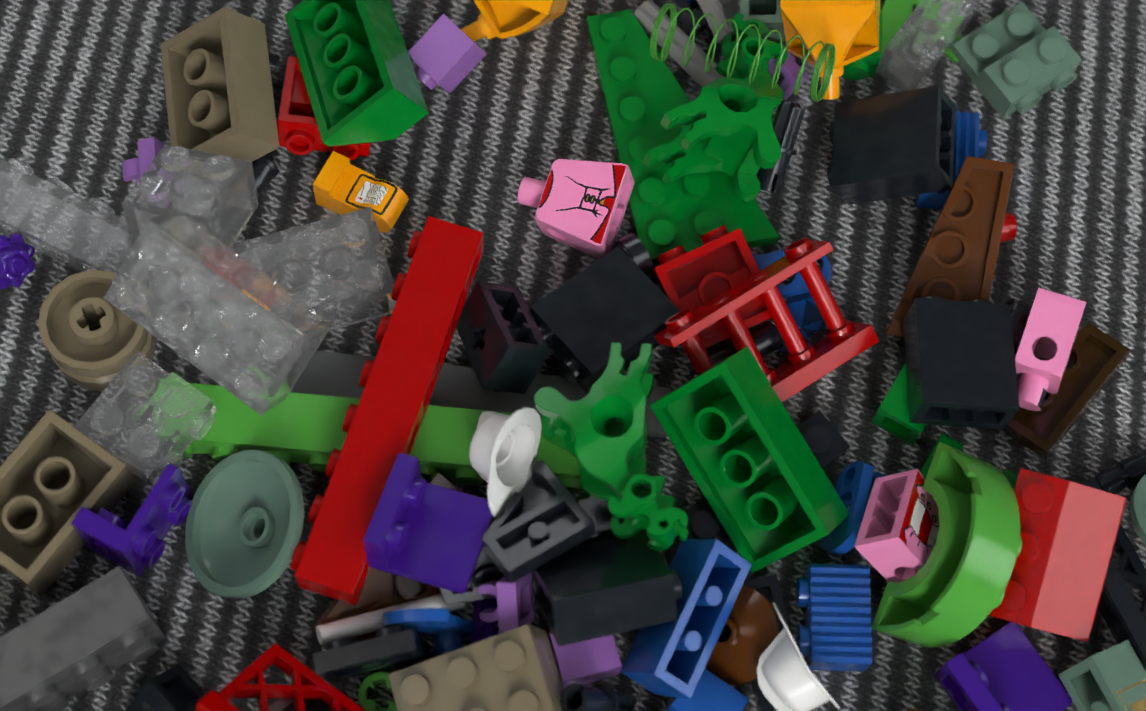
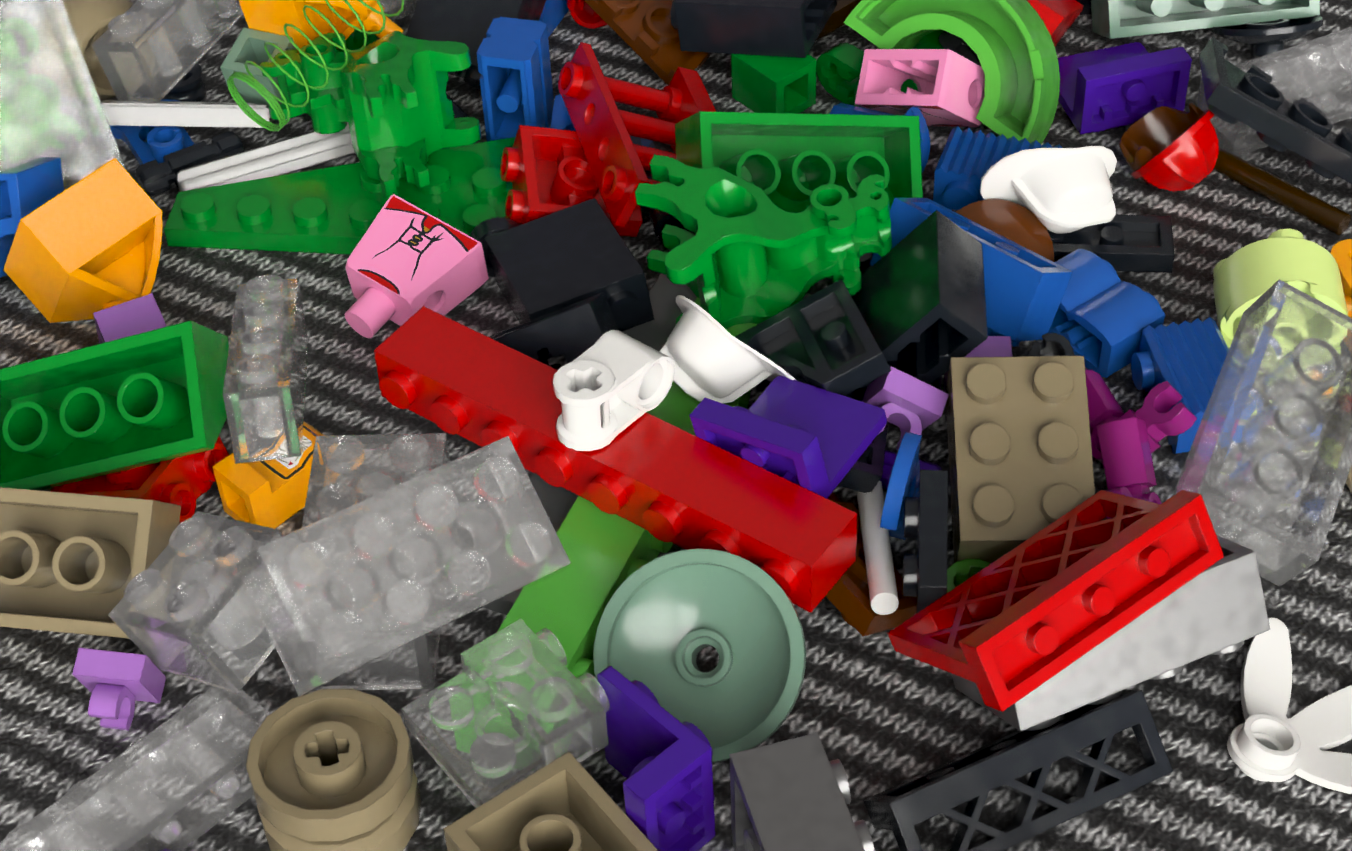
camera: 65 degrees left, 25 degrees down
(416, 392) = (609, 389): none -> white piece
(428, 149) = (266, 370): none -> clear brick
(812, 204) = (515, 76): none -> blue brick

